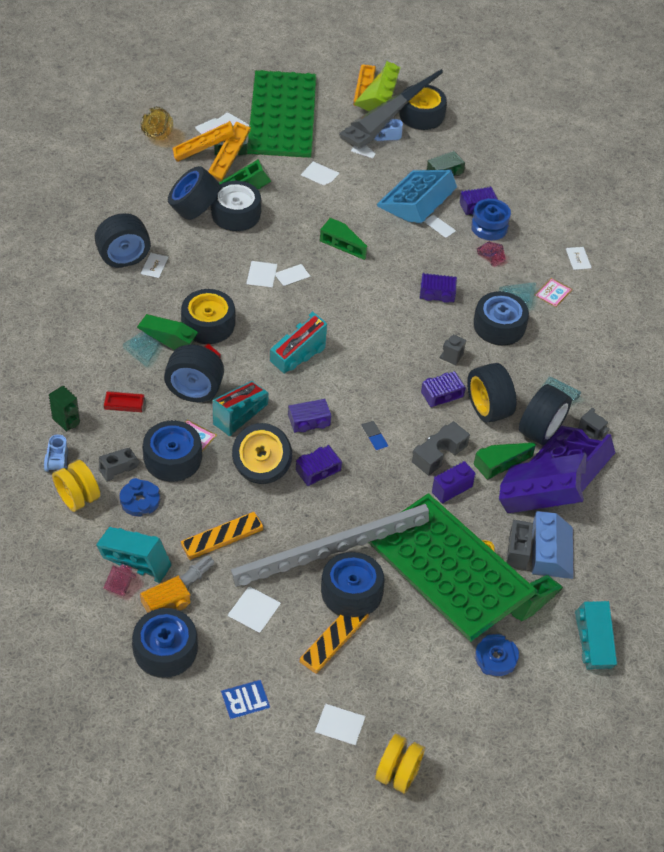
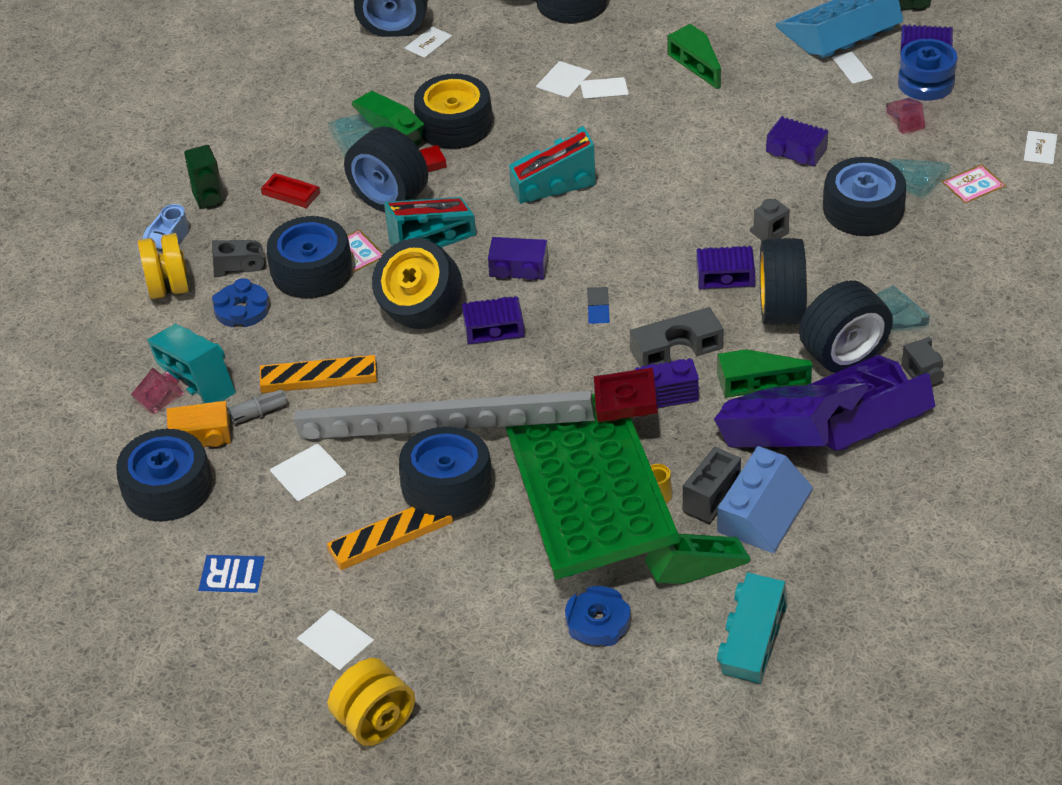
camera: 30 degrees right, 5 degrees down
(443, 499) = (625, 394): none -> dark red plate

